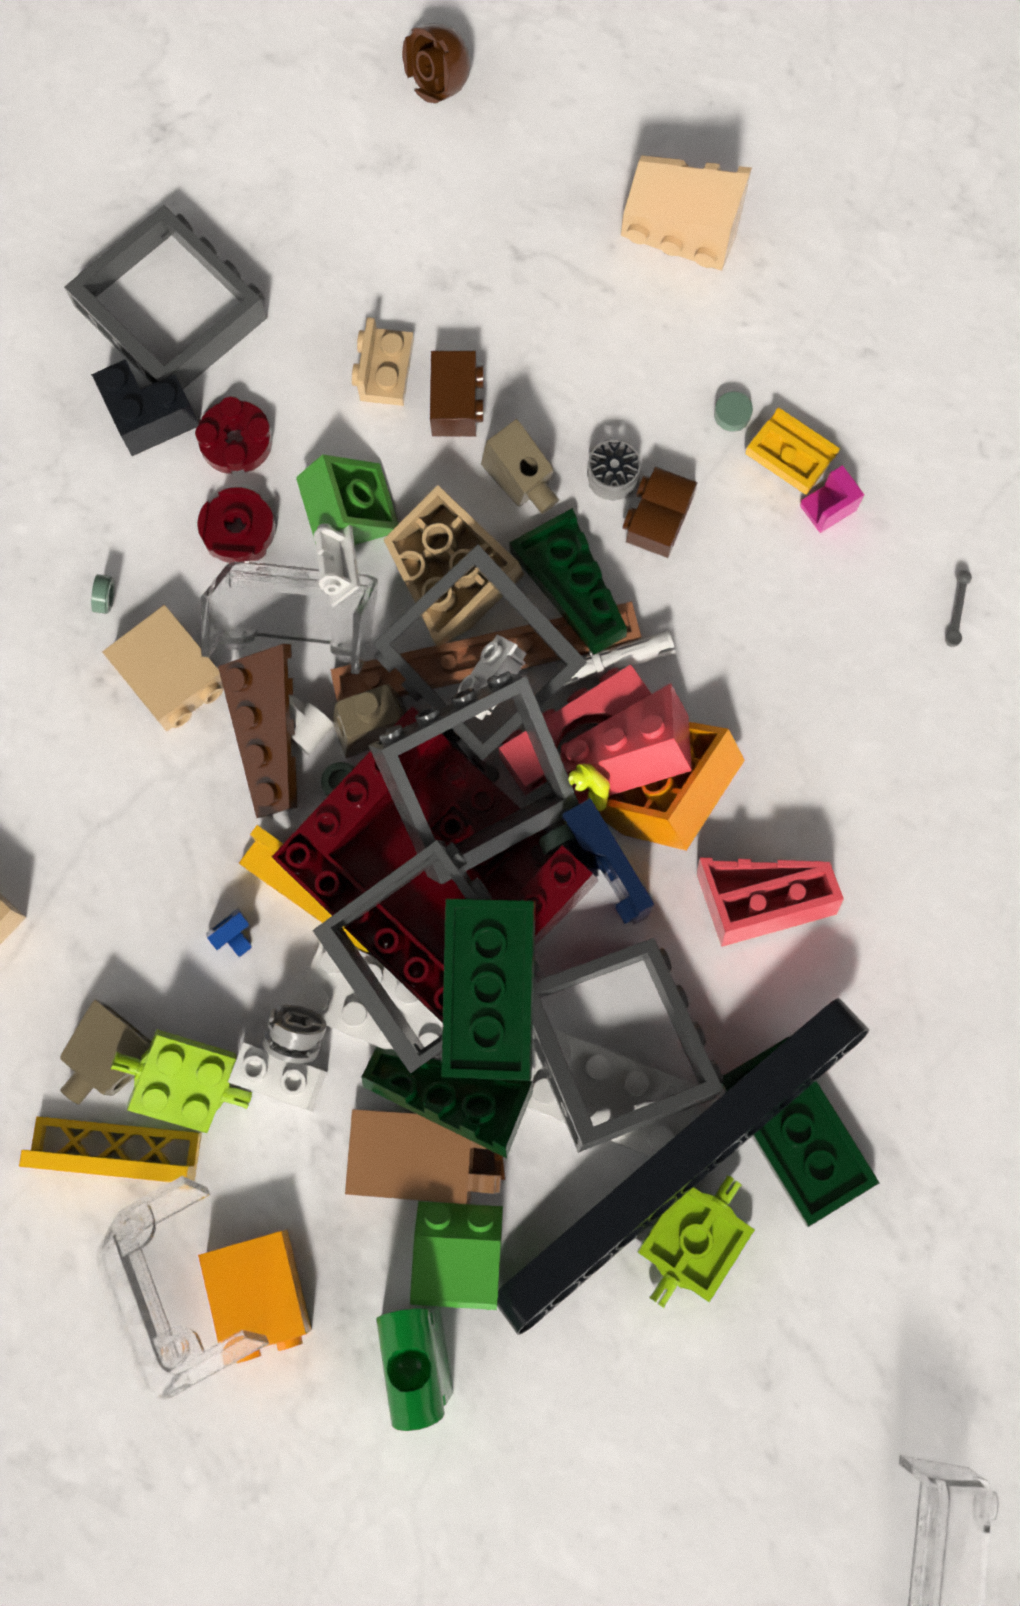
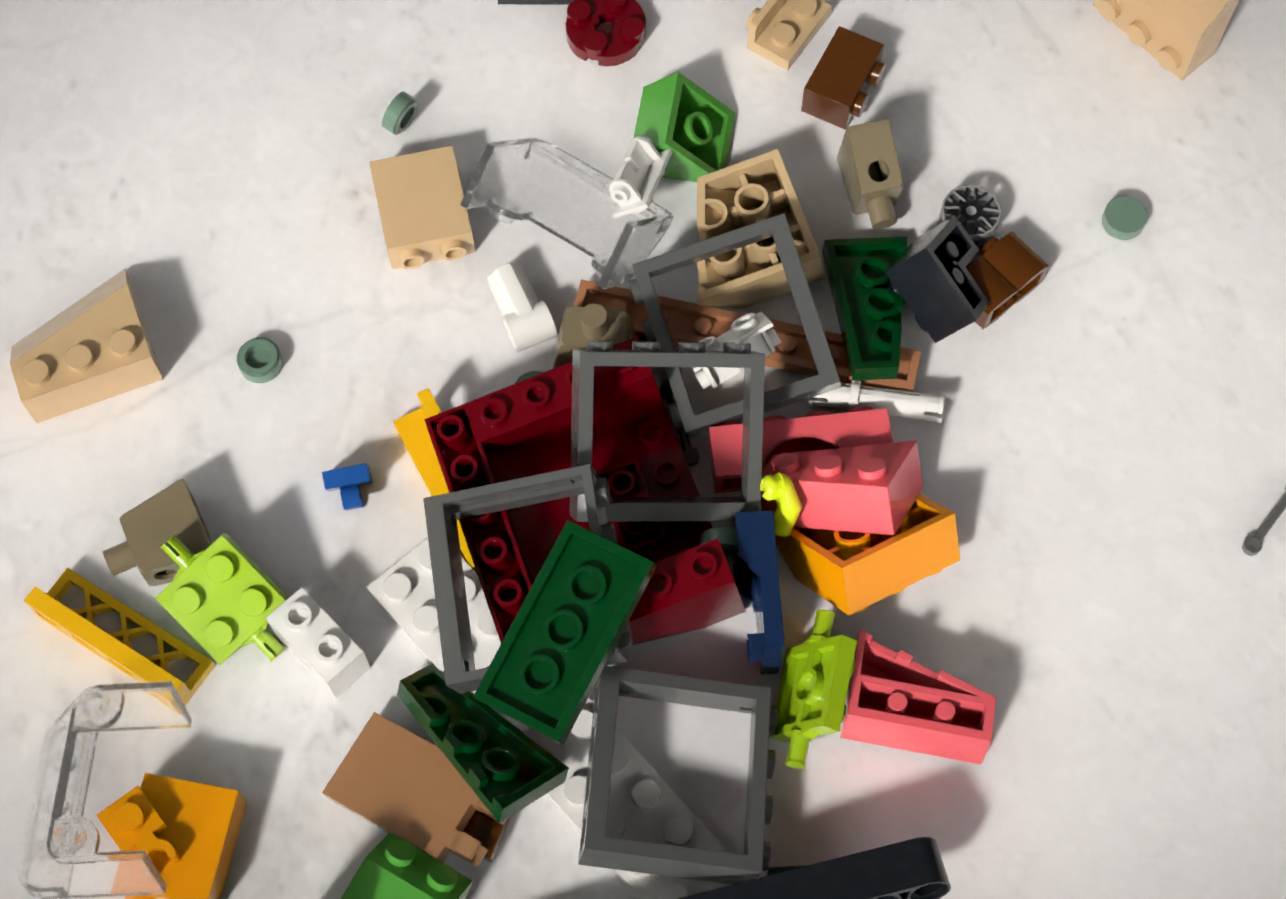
camera: 25 degrees right, 10 degrees down
(99, 863) = (259, 360): none -> sand green tile
(214, 1302) = (136, 824): none -> light orange plate
(223, 510) = (569, 128): dark red plate -> none
(260, 714) = (489, 282): reddish brown wing -> none
(294, 1032) = (357, 605): light grey wheel -> none
(617, 538) = (936, 282): none -> black brick
(687, 921) = (813, 688): none -> lime plate
(792, 451) = (1167, 281): yellow plate -> none
(833, 501) = (1187, 351): dark pink panel -> none

